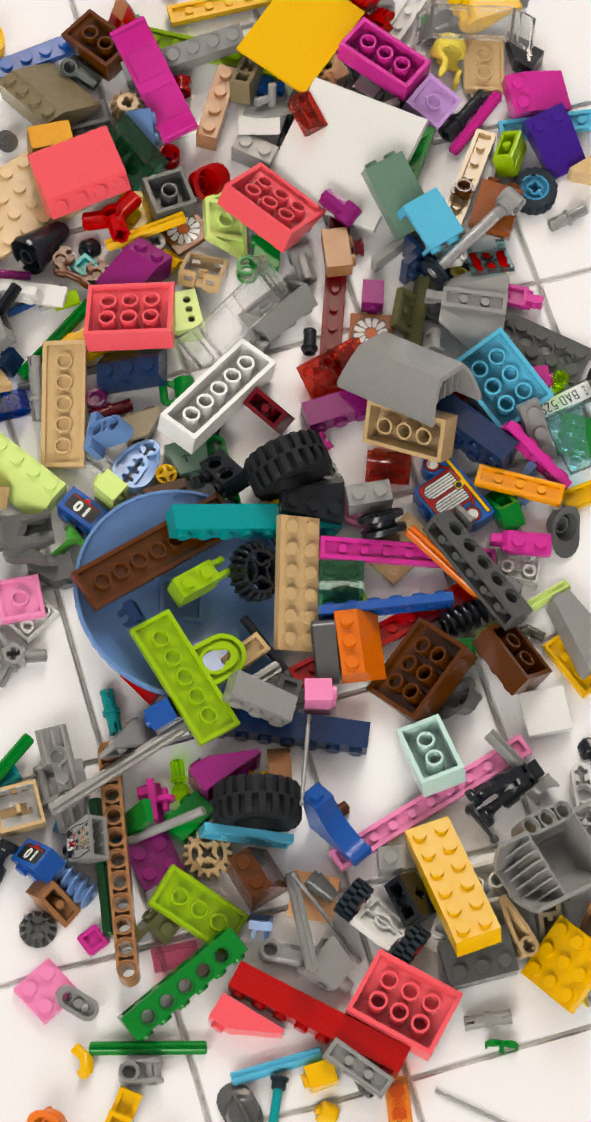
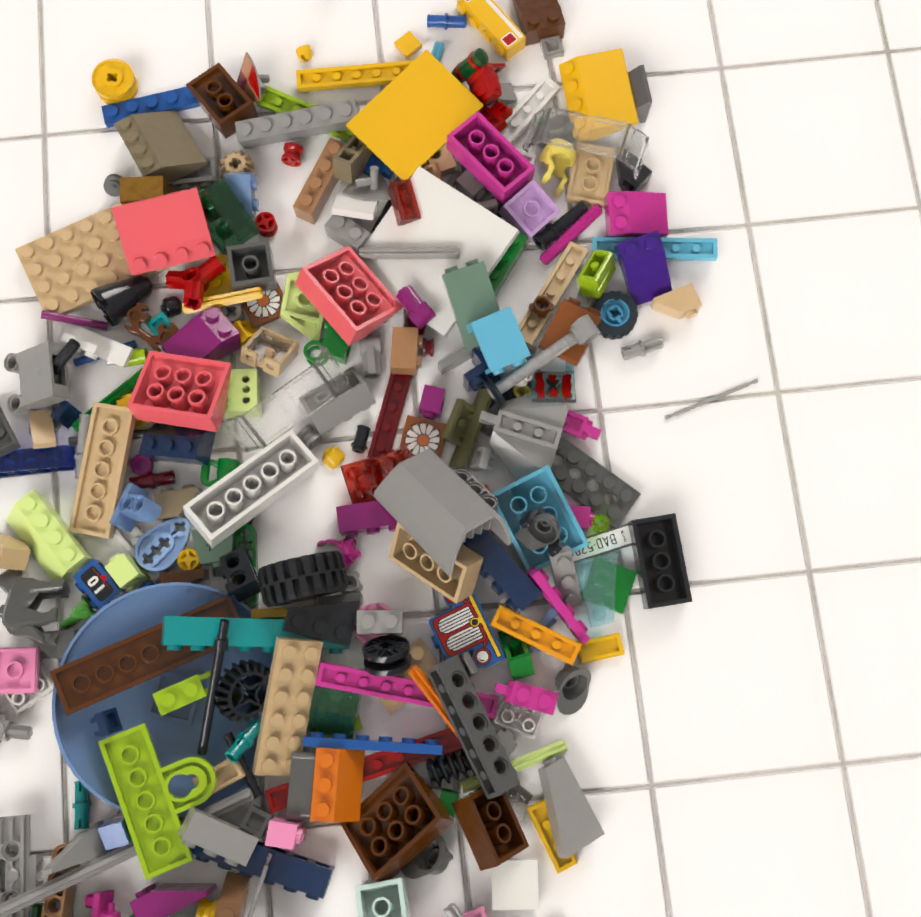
camera: 15 degrees right, 10 degrees up
(83, 72) = (196, 120): pearl dark grey piece -> none
(154, 80) = (261, 144): dark pink windscreen -> none
(178, 778) = (131, 887): clear neon green axle -> none
(208, 180) = (297, 254): red piece -> none
(228, 523) = (220, 645): none -> black bar
(262, 617) = (243, 741): none -> teal pin
(268, 410) = (302, 508): dark red brick -> none
(284, 364) = (333, 457): none -> yellow piece
(322, 159) = (410, 252): none -> light grey axle
(388, 465) = (407, 590): clear red brick -> none
(505, 385) = (540, 530): none -> dark grey cap

